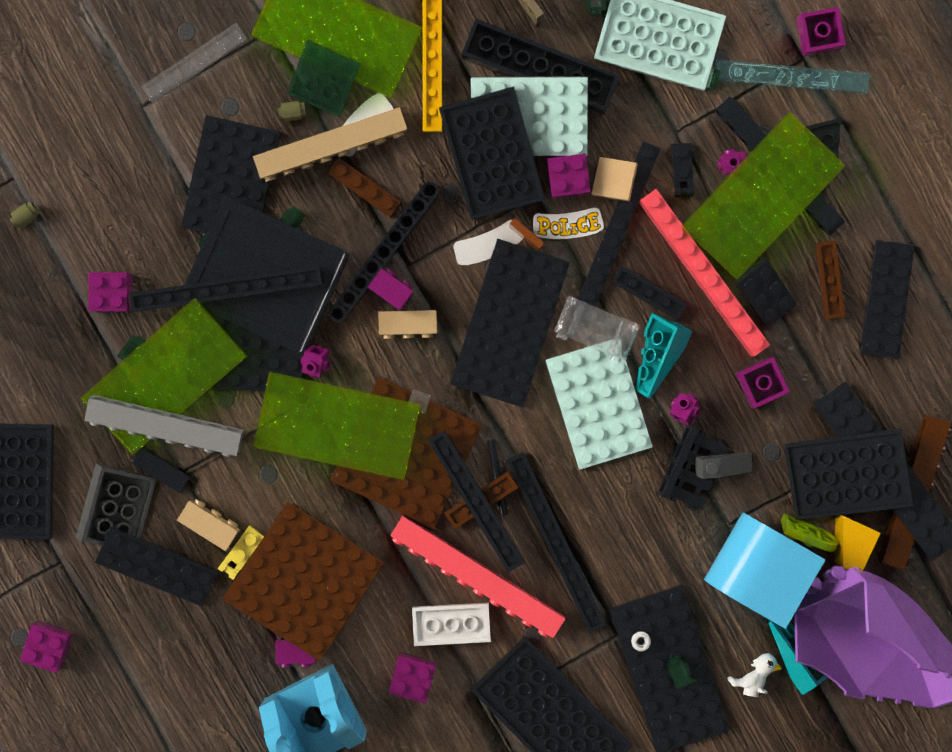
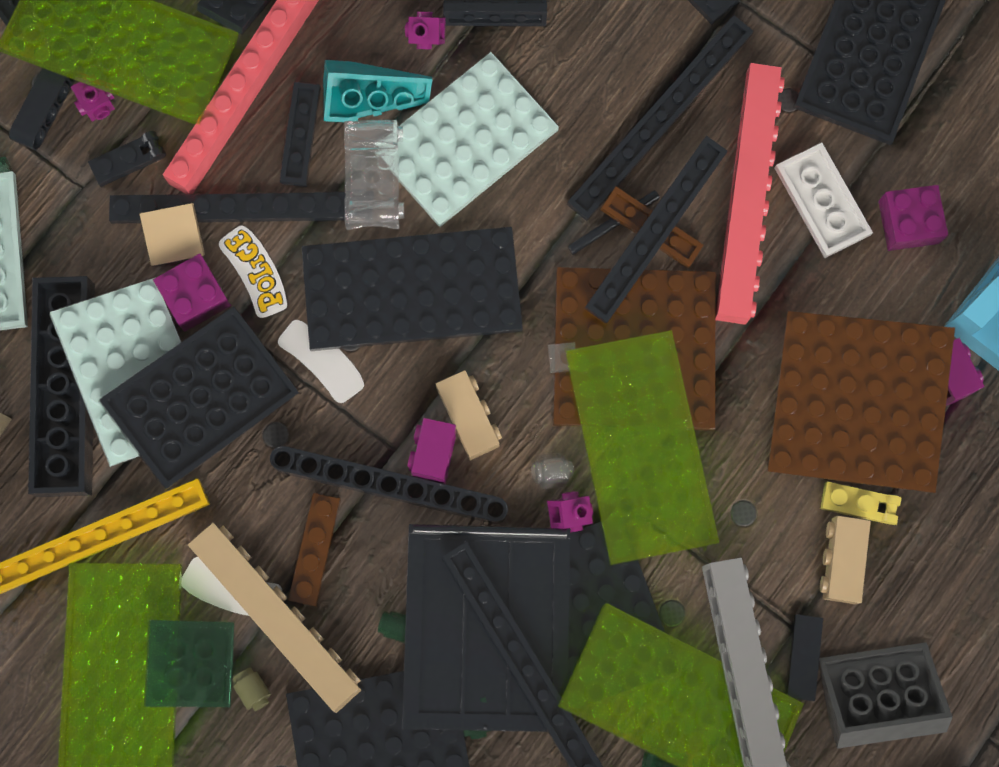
camera: 115 degrees left, 10 degrees down
(156, 566) = (933, 606): black plate -> none
(348, 361) = (551, 470): none -> clear head
(526, 234) = (288, 310): dark orange tile -> none

